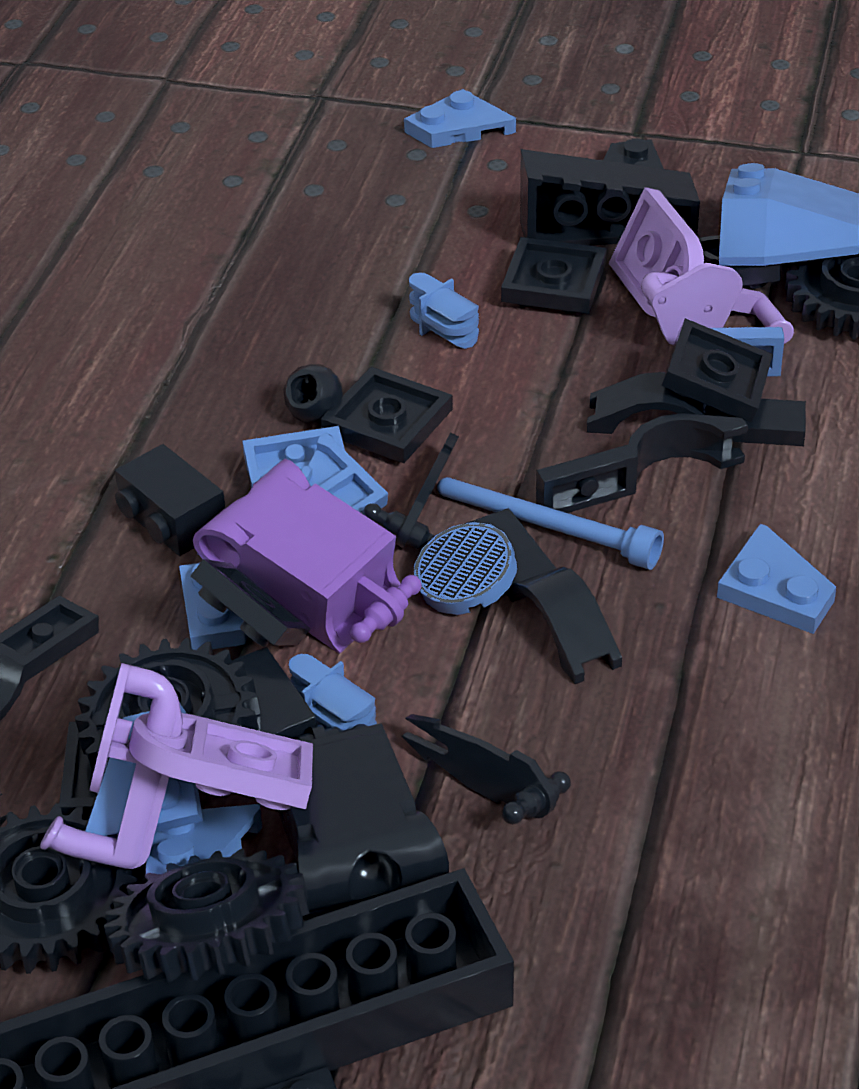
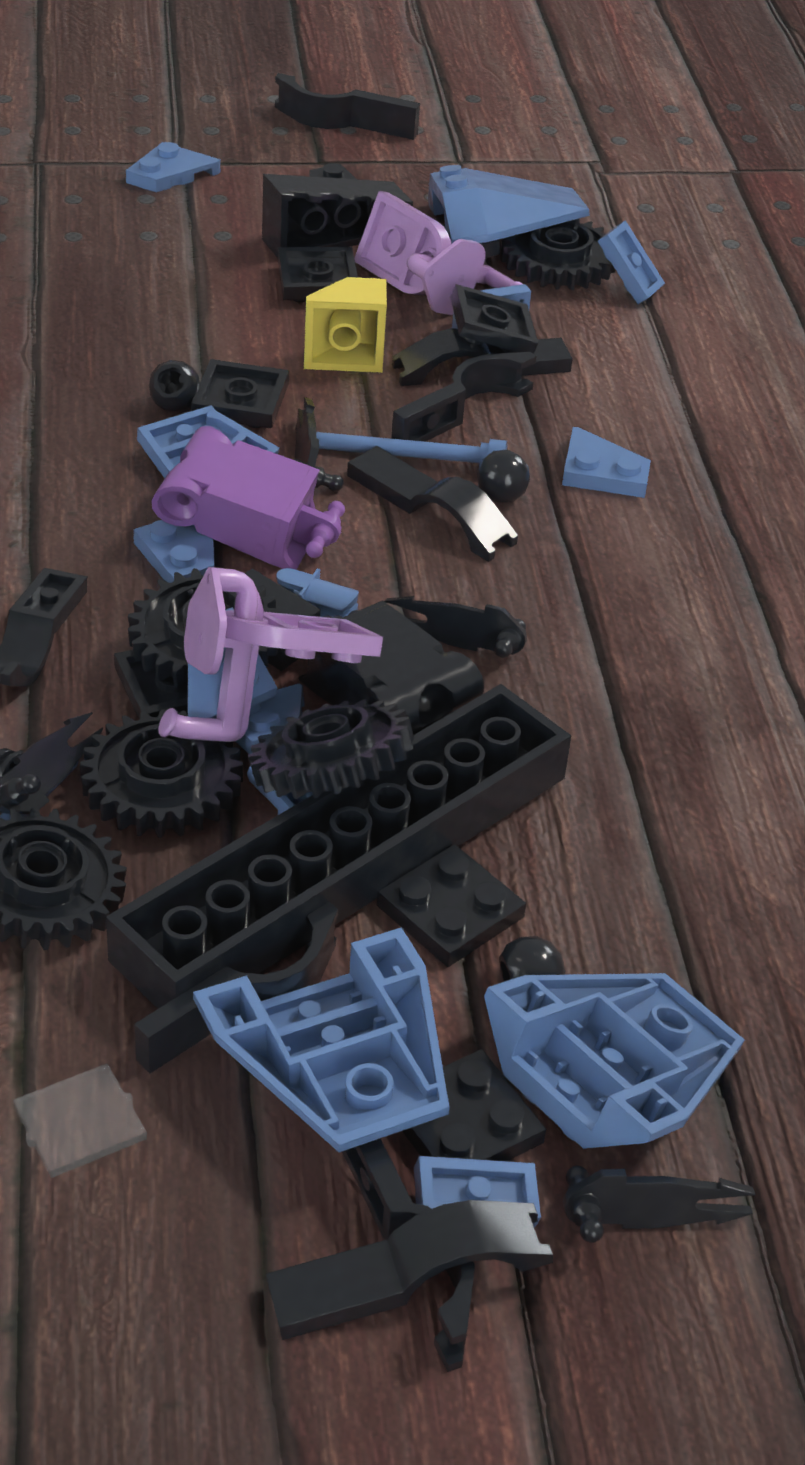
camera: 25 degrees left, 0 degrees up
(167, 497) = (99, 481): black brick -> none
(263, 616) = (209, 531): black plate -> none
(443, 310) = (243, 310): medium blue arm -> none
(465, 567) = (370, 490): tile -> none
(539, 350) = (346, 326): none -> light yellow slope
(634, 578) = (503, 476): none -> black piece
(698, 72) = (352, 109): none -> black piece

